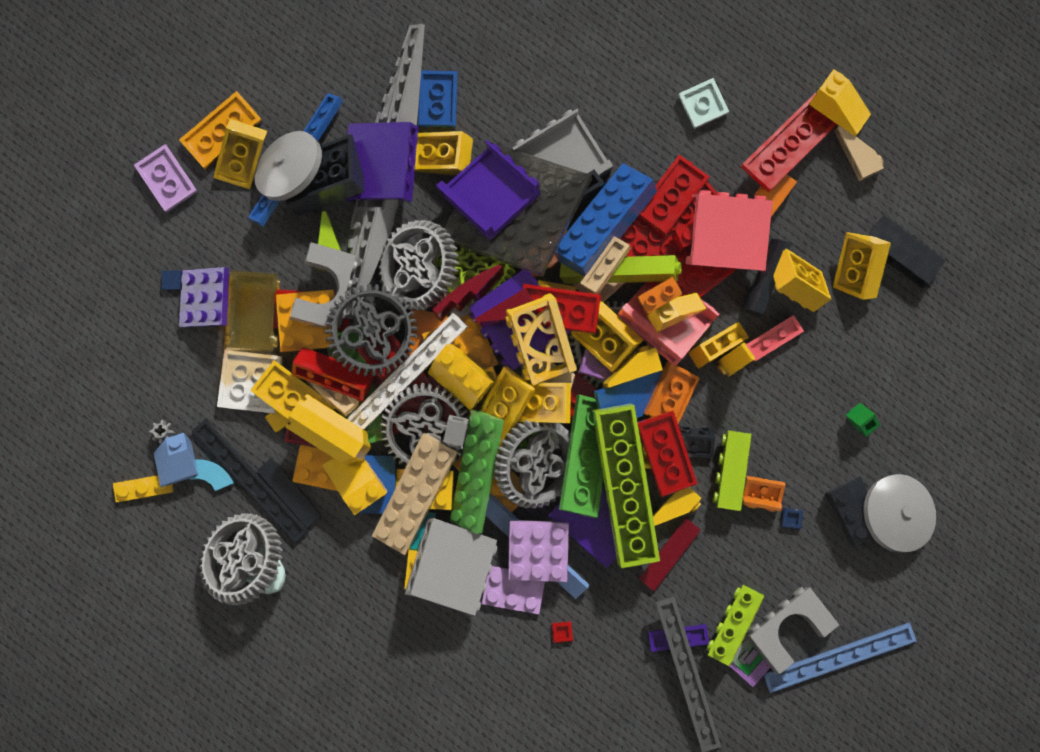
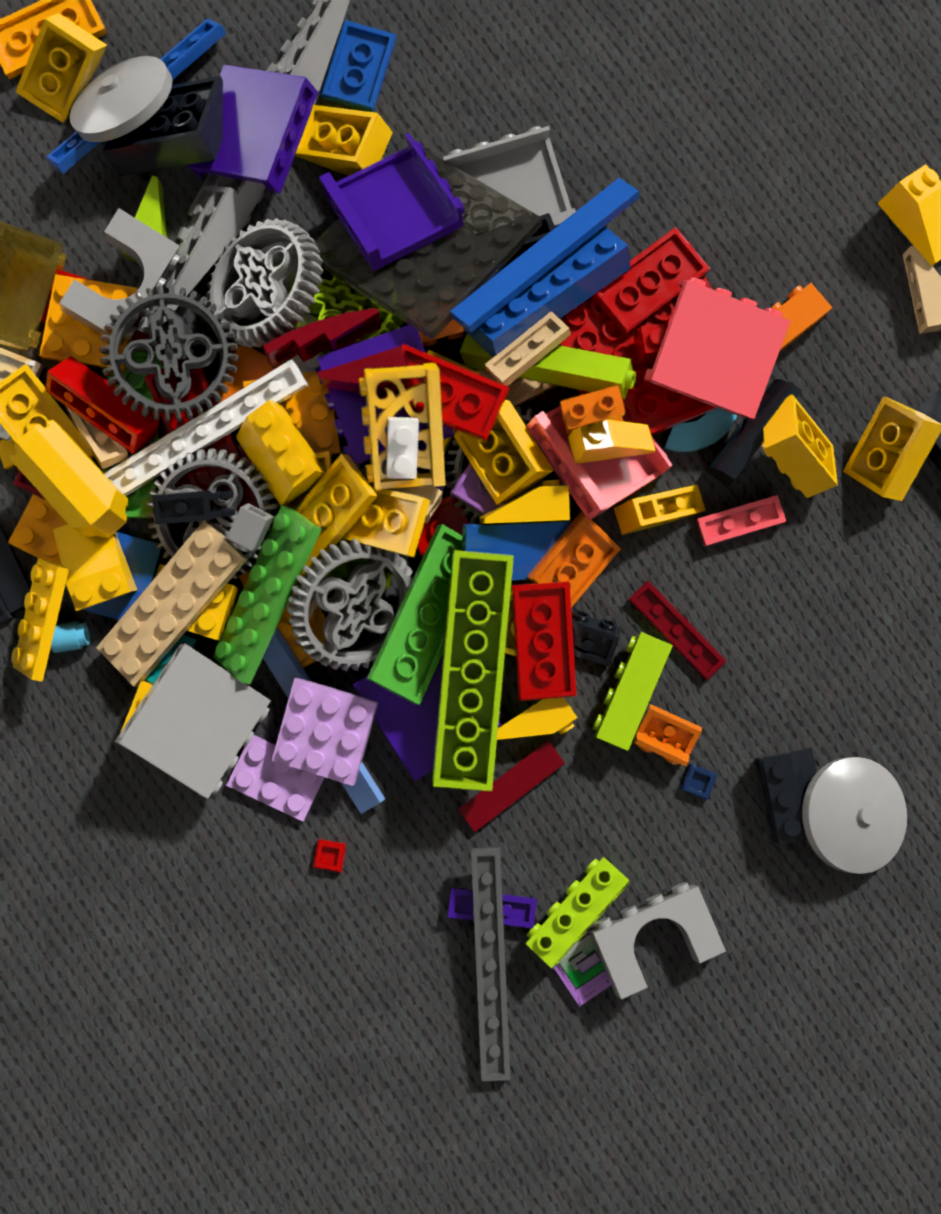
camera: 10 degrees right, 0 degrees up
(330, 526) = (40, 618): none -> yellow plate
(349, 533) = (70, 637): none -> medium azure brick
(411, 427) = (189, 506): none -> black hinge
(543, 353) = (402, 447): none -> white plate
(600, 199) = (544, 255): none -> blue tile
(703, 103) = (729, 167): light aqua plate -> none
(732, 286) = (700, 433): none -> medium azure tile
(735, 360) = (678, 534): yellow slope -> none
(751, 422) = (677, 630): none -> dark red tile
(788, 146) = (832, 254): plate -> none
(841, 657) = (716, 997): medium blue tile -> none
(863, 419) = (837, 668): green brick -> none

